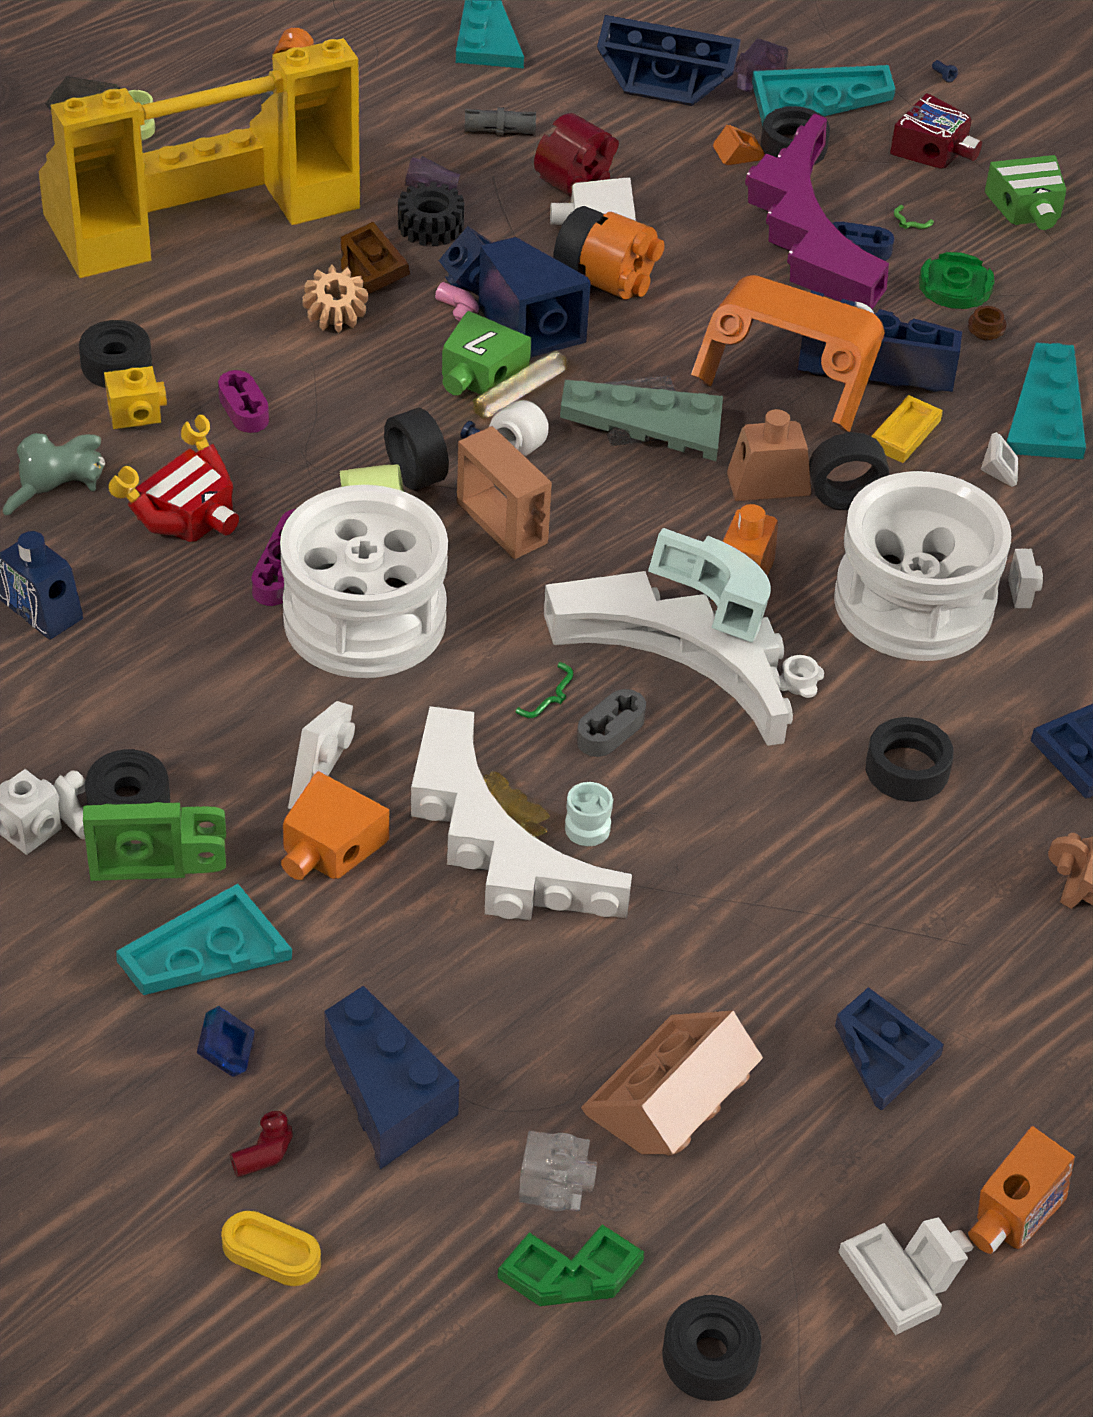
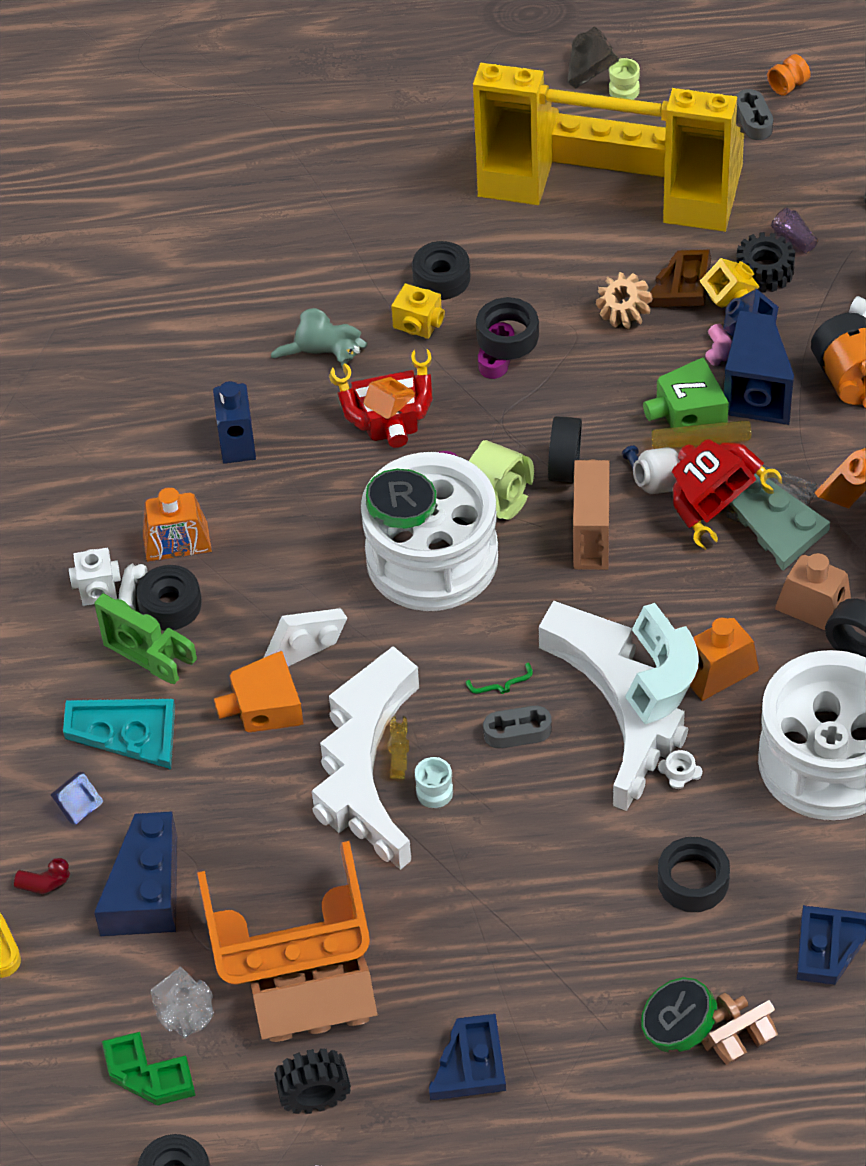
camera: 45 degrees right, 5 degrees up
(70, 717) = (174, 526): none -> orange torso
(191, 483) = (387, 396): none -> orange slope
(248, 388) = (503, 310): none -> black tyre
(335, 547) = (400, 498): none -> tile
(412, 239) = (728, 281): none -> yellow brick
(593, 404) = (711, 479): none -> red torso
(644, 1009) = (336, 940): none -> orange windscreen
(769, 1158) = (312, 1081): none -> black tyre
(1031, 885) = (678, 1015): none -> tile

